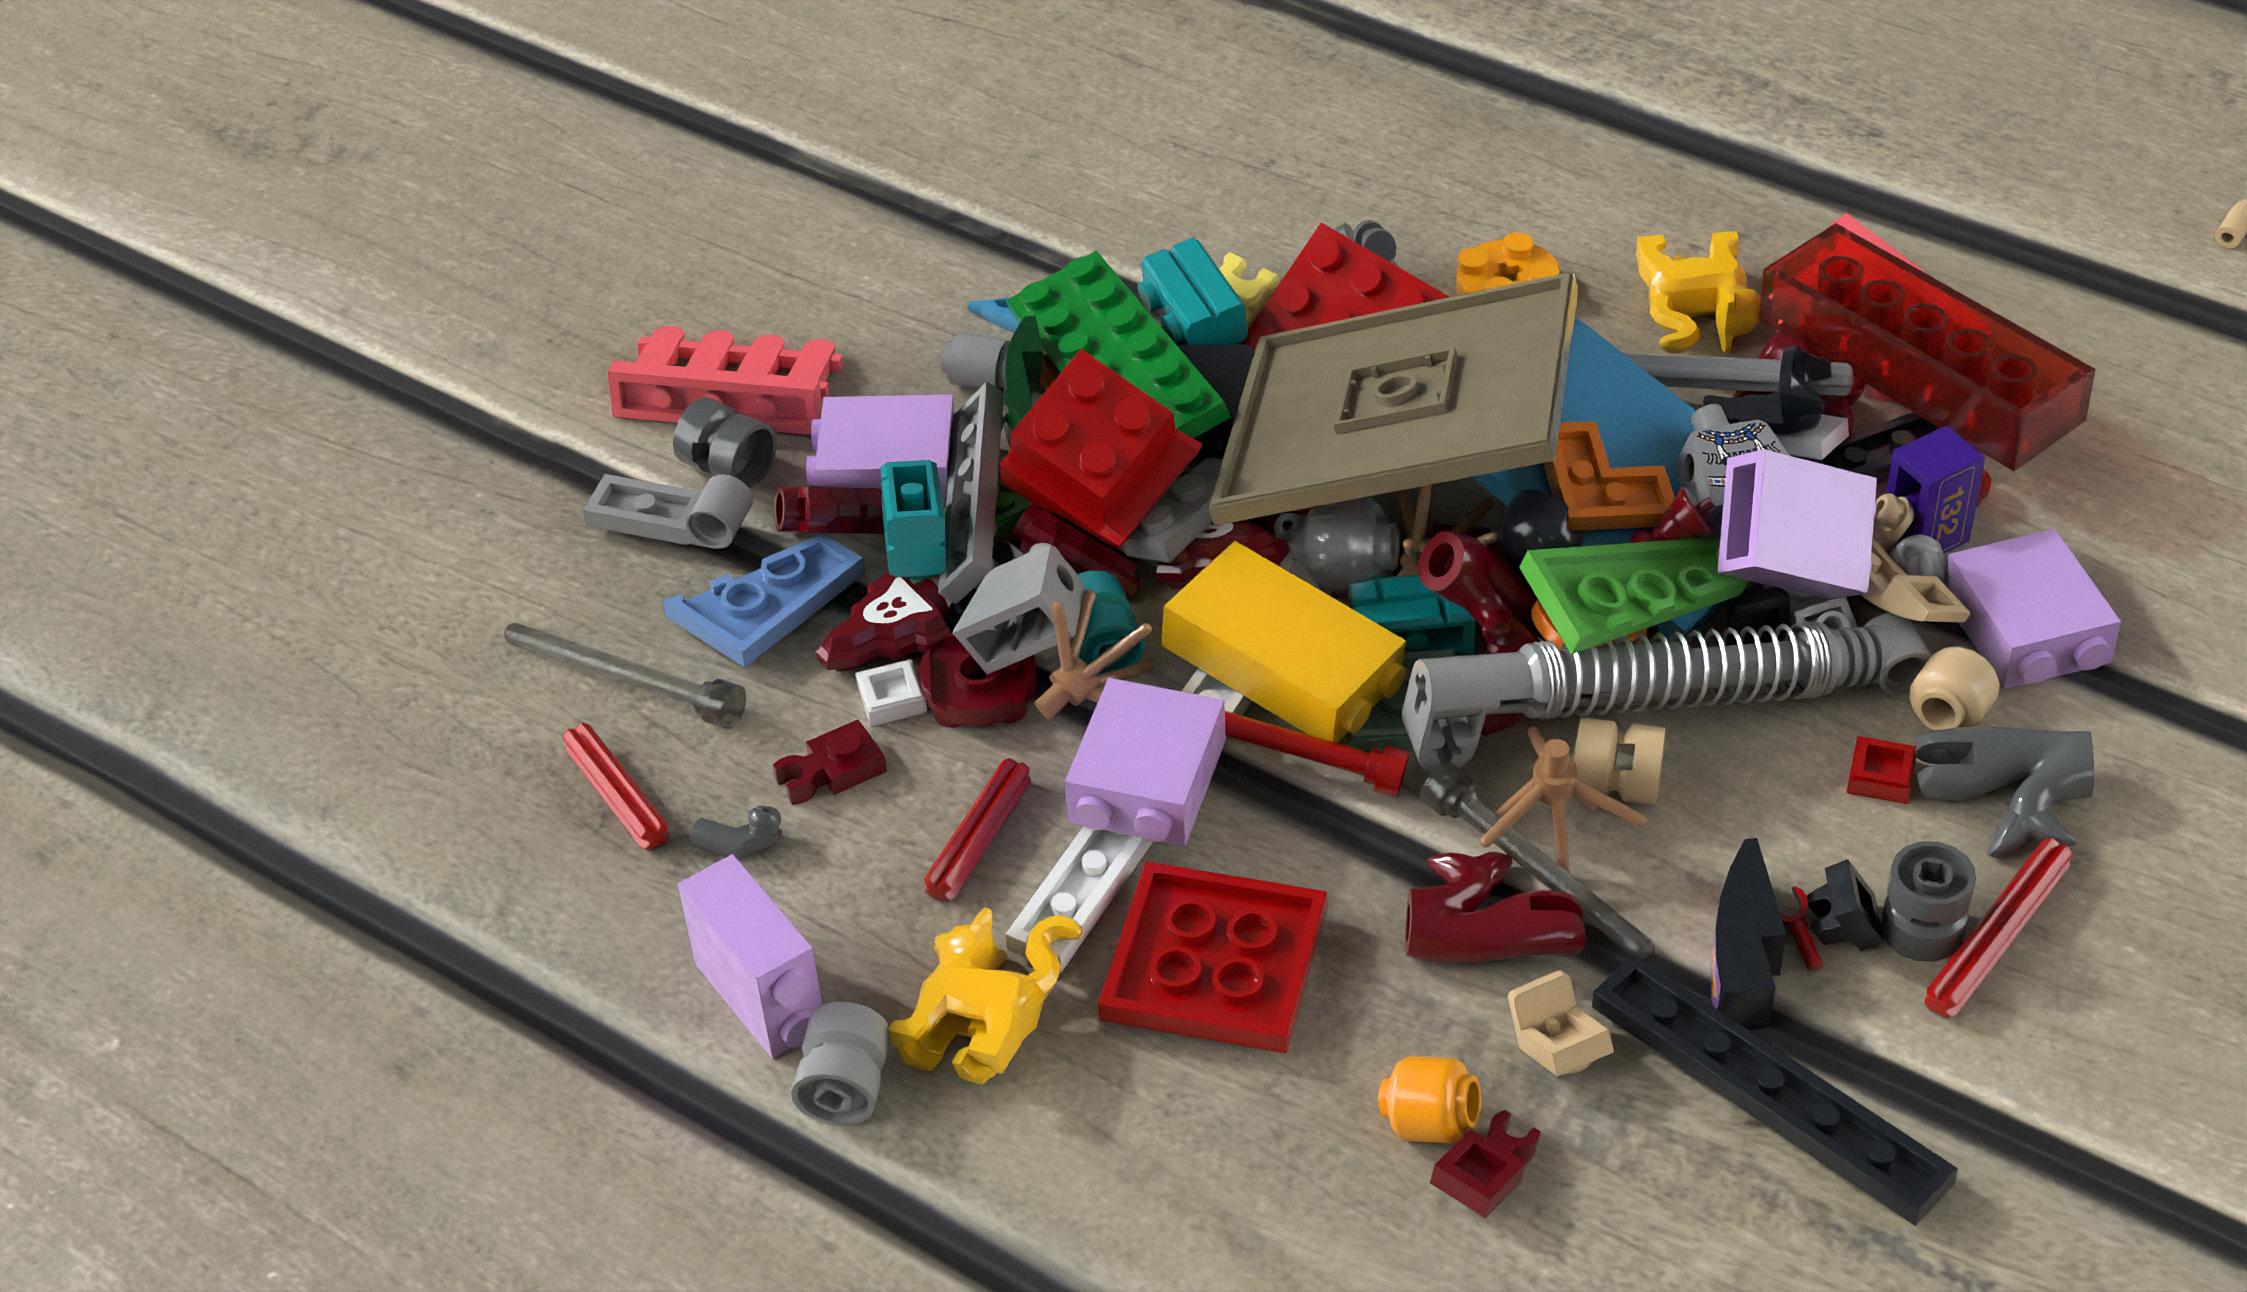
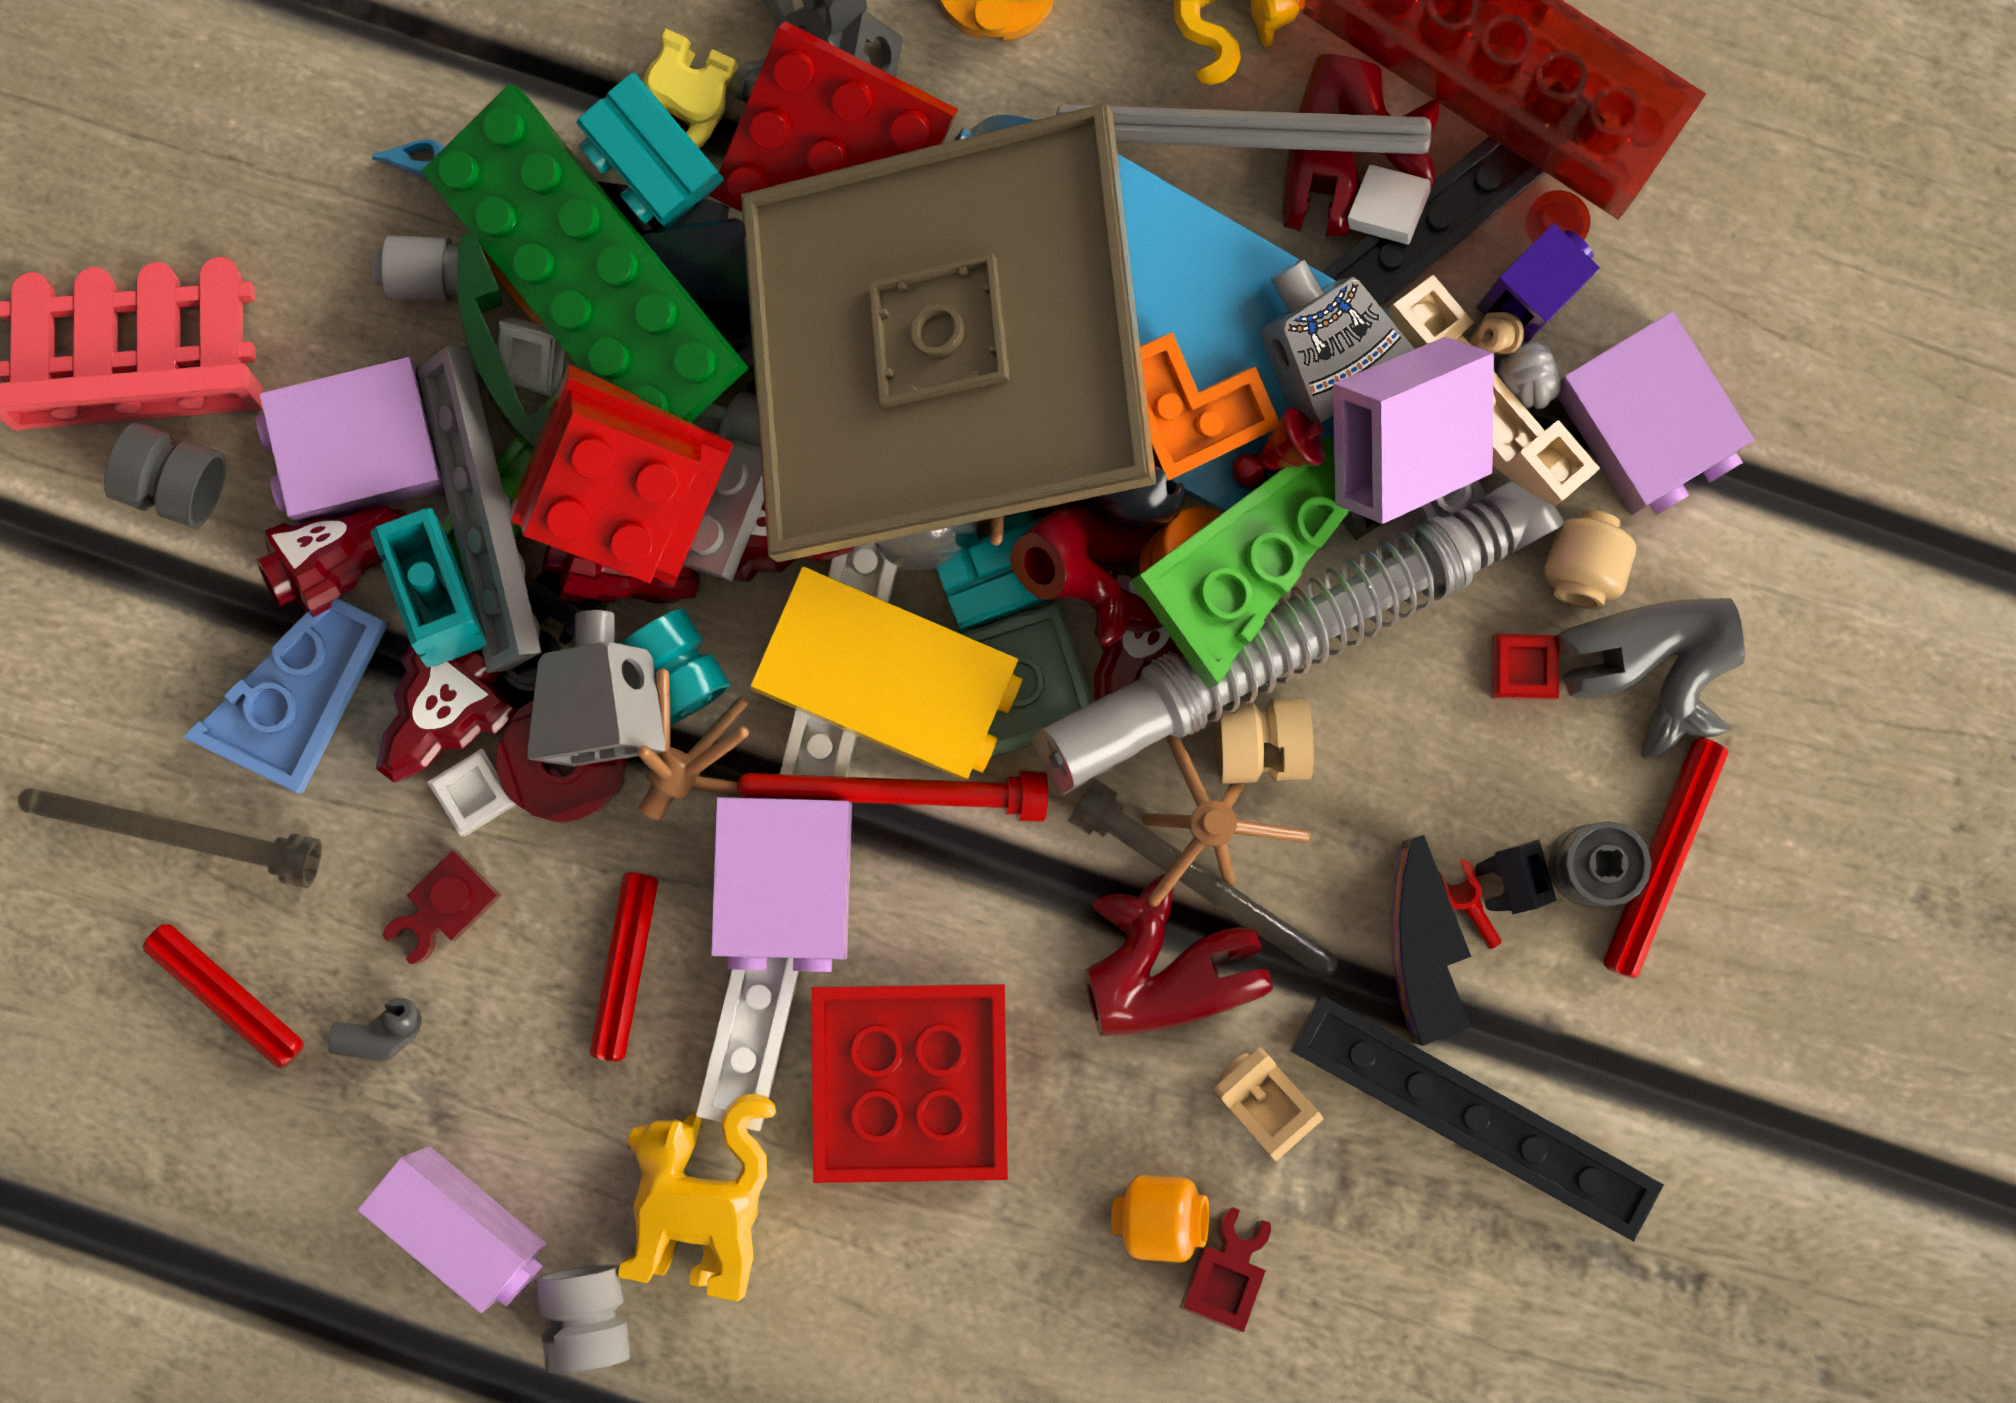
camera: 20 degrees left, 40 degrees up
(671, 512) = (135, 589): light grey plate -> none
(1795, 405) = (1357, 197): black hair -> none

